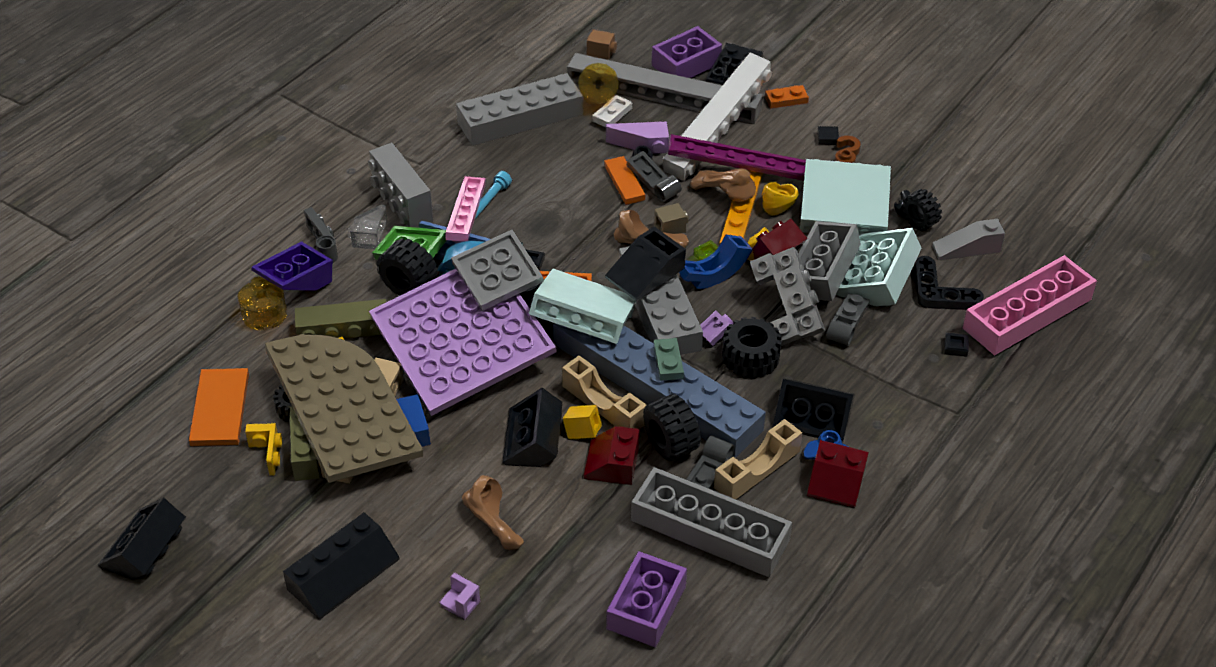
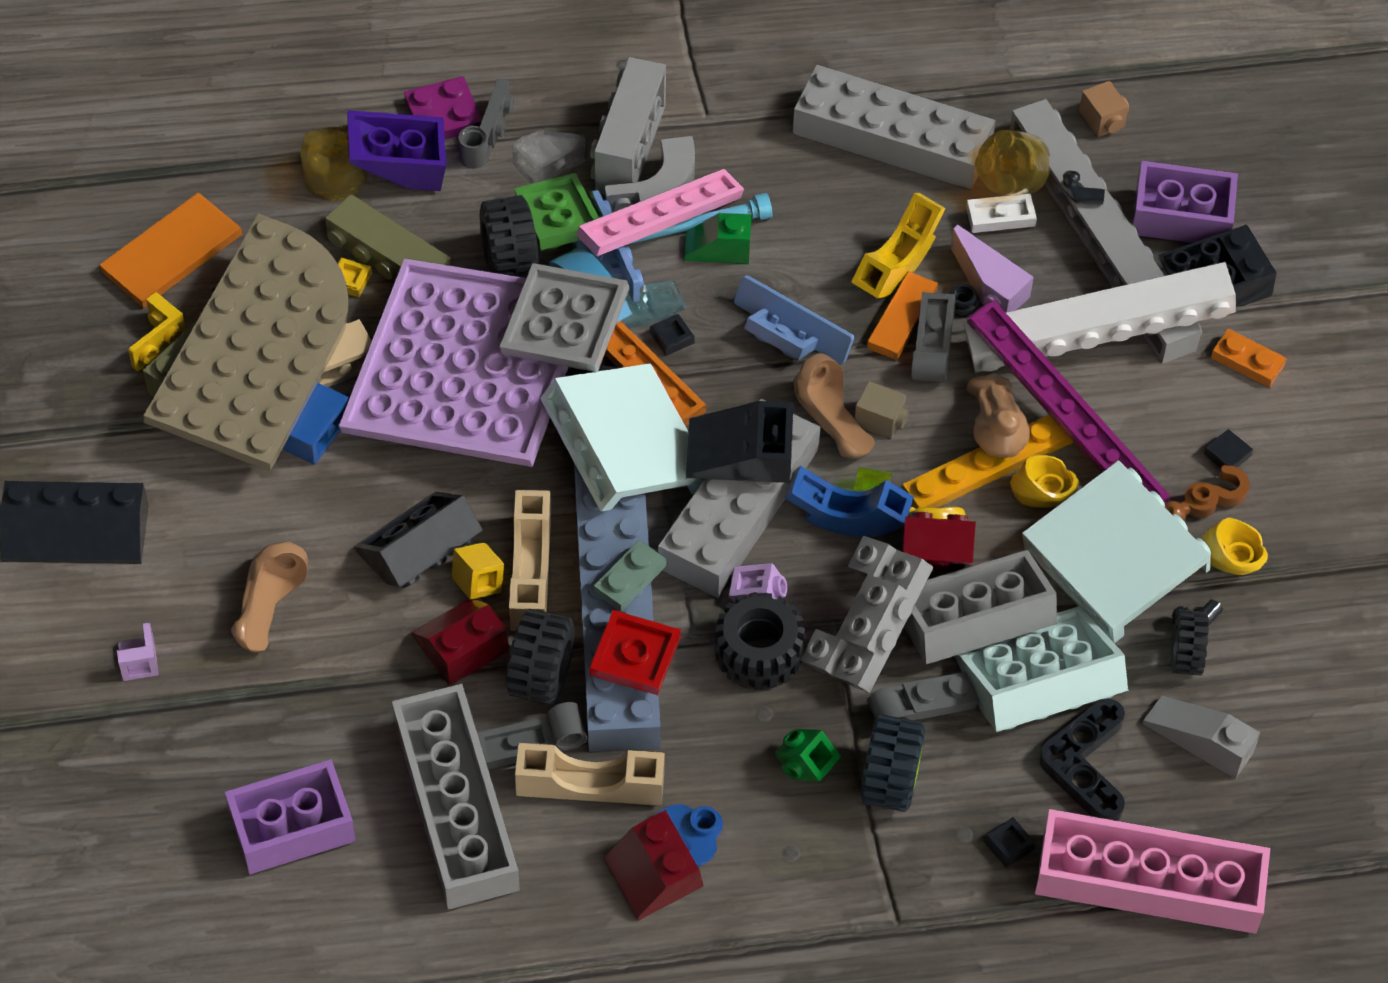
camera: 45 degrees right, 10 degrees up
(282, 239) = (447, 100): none -> magenta plate
(444, 194) = (676, 170): none -> light grey arch
(503, 204) = (720, 239): none -> green slope
(582, 215) = (789, 324): none -> medium blue bracket
(591, 146) = (886, 268): none -> yellow arch
(643, 76) = (1078, 192): none -> black arm
(718, 386) = (635, 652): none -> red plate
(814, 407) = (735, 770): black slope -> none
(837, 373) = (807, 754): none -> green brick
(880, 344) = (892, 763): none -> black wheel
(886, 158) = (1235, 547): none -> yellow hair

